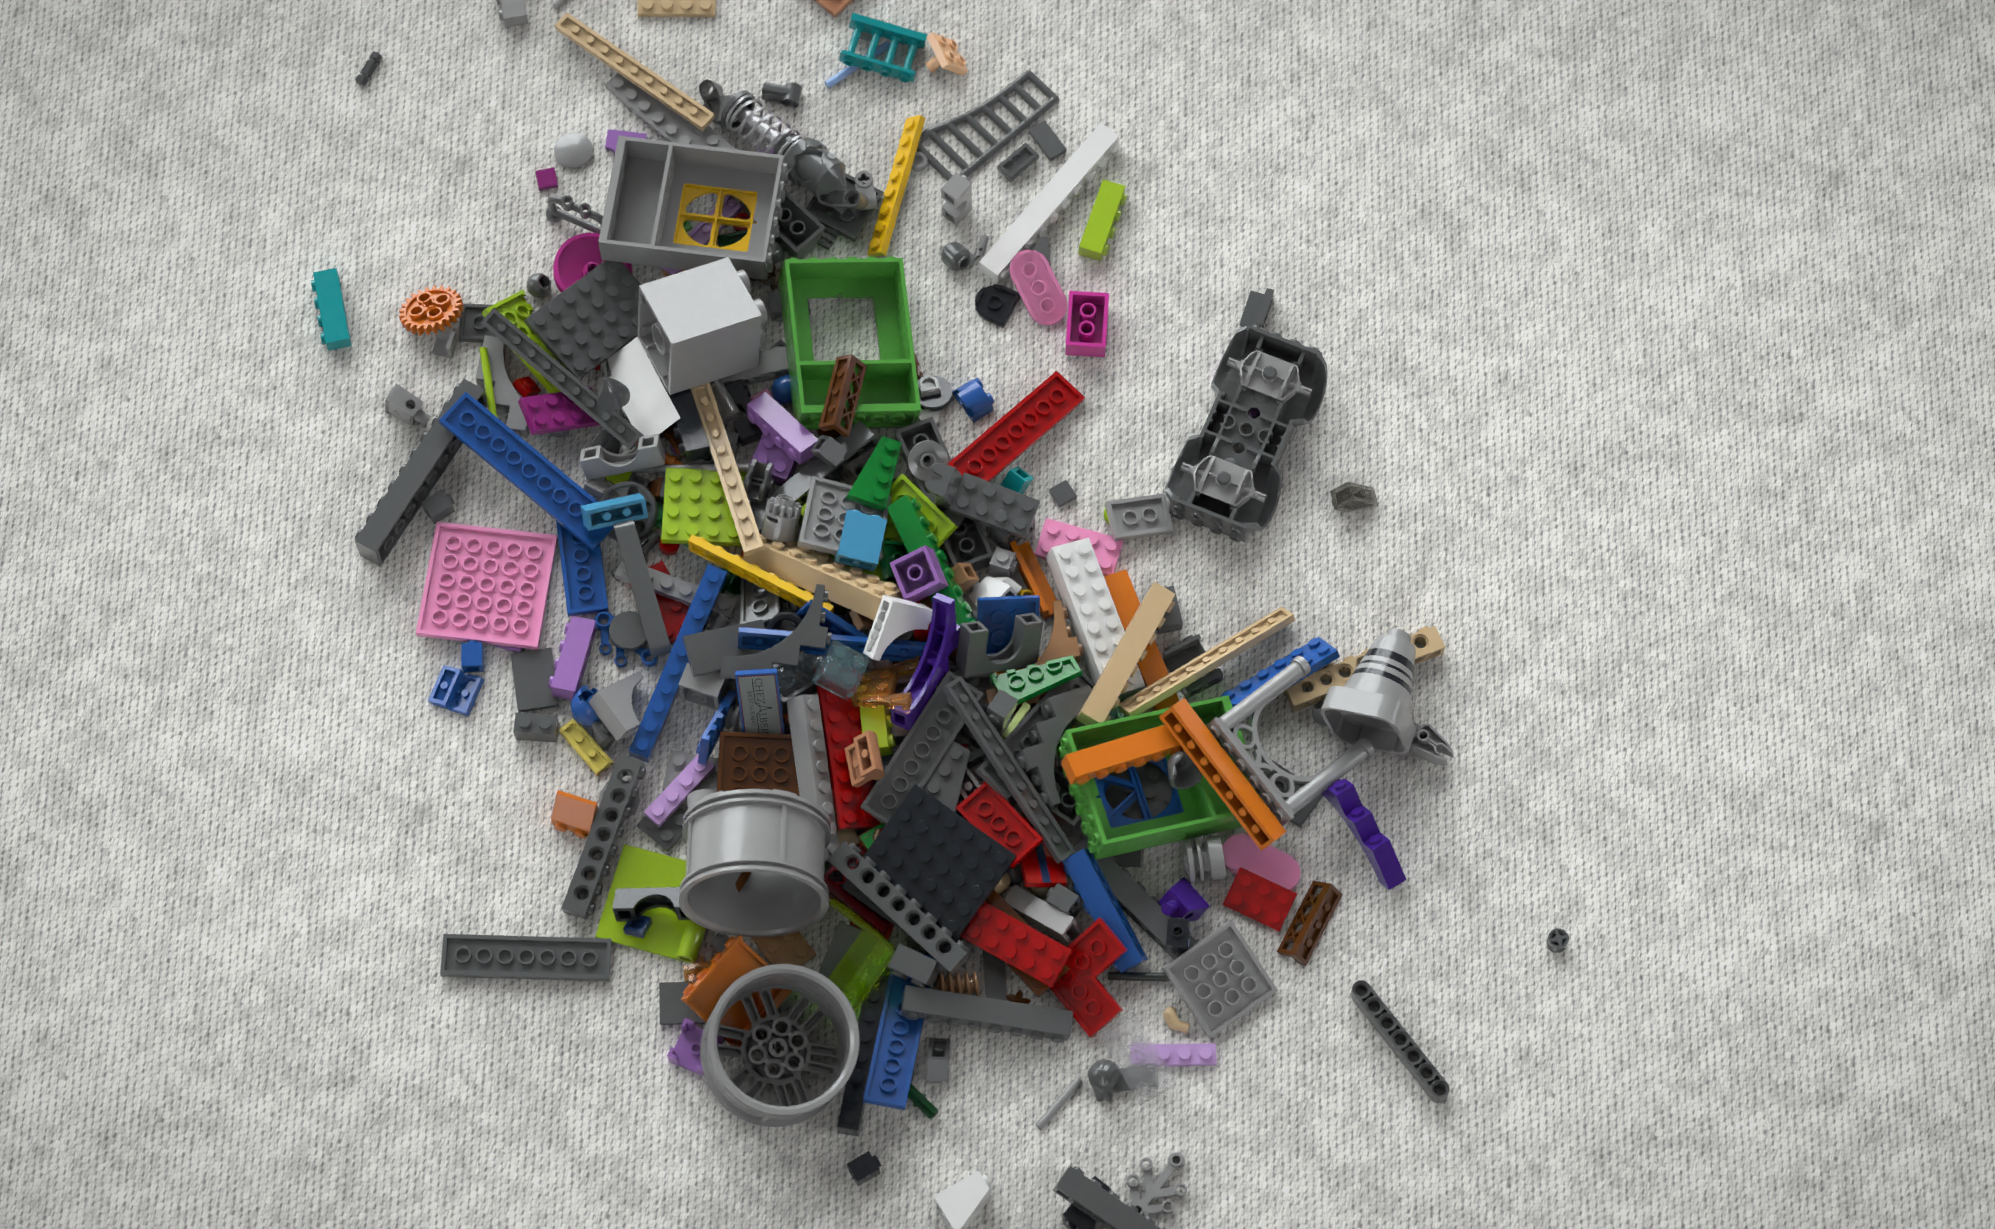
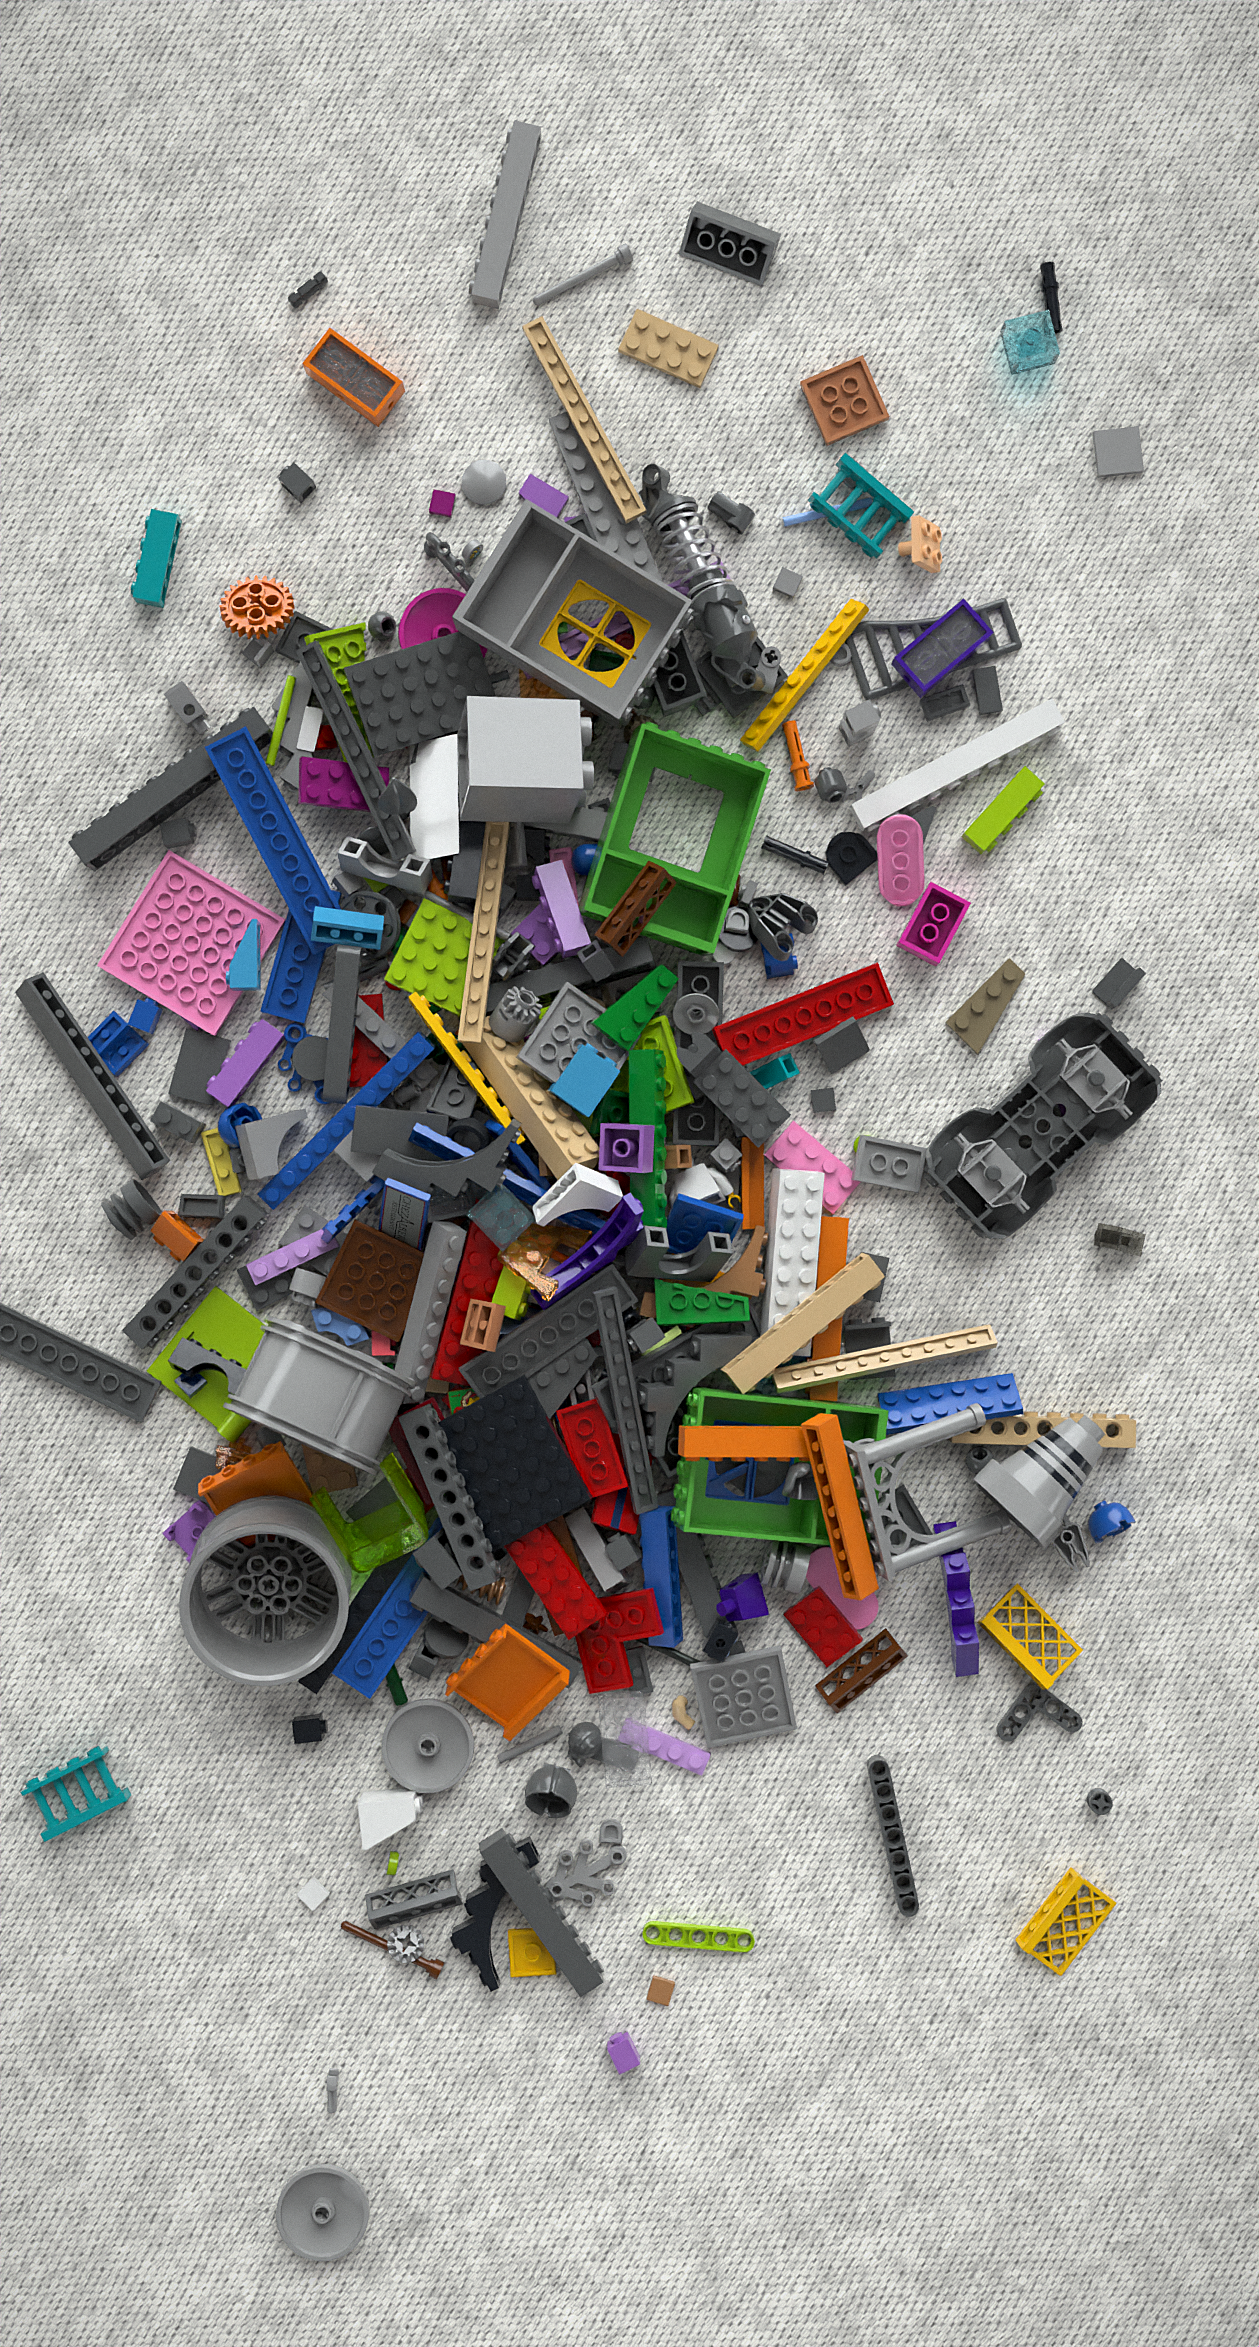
camera: 25 degrees right, 20 degrees up
(422, 208) = (296, 482): none -> dark grey brick
(435, 114) = (354, 377): none -> brick
(449, 720) = (92, 1076): none -> dark grey brick
(514, 381) = (309, 729): none -> white sticker
(528, 807) = (135, 1206): none -> dark grey wheel
(541, 580) = (245, 966): none -> dark azure slope
(586, 784) = (202, 1206): none -> dark grey tile
(587, 198) = (472, 550): none -> light grey tile
(850, 126) = (787, 582): none -> light grey tile
(924, 254) = (799, 765): none -> orange pin
(926, 362) = (747, 892): none -> light grey plate
(947, 1039) = (444, 1640): none -> dark grey tile
(952, 320) = (798, 856): none -> black pin
(959, 370) = (773, 918): none -> dark grey connector
(972, 1135) = (428, 1745): none -> light grey dish
(996, 121) = (942, 648): none -> clear brick
(1015, 1046) = (509, 1680): none -> orange panel
(1057, 442) = (842, 1045): none -> dark grey tile
(1098, 1134) = (551, 1791): none -> dark grey piece
(1123, 999) = (639, 1670): none -> dark grey plate
(1159, 371) = (983, 1009): none -> dark tan wing
(1161, 1145) = (611, 1831): none -> light grey tile
(1284, 1191) = (709, 1941): none -> lime beam
(1427, 848) = (1016, 1650): none -> yellow fence
(1454, 710) = (1109, 1520): none -> blue cylinder
(1470, 885) = (1038, 1703): none -> dark grey beam
(1564, 1042) = (1048, 1915): none -> yellow fence

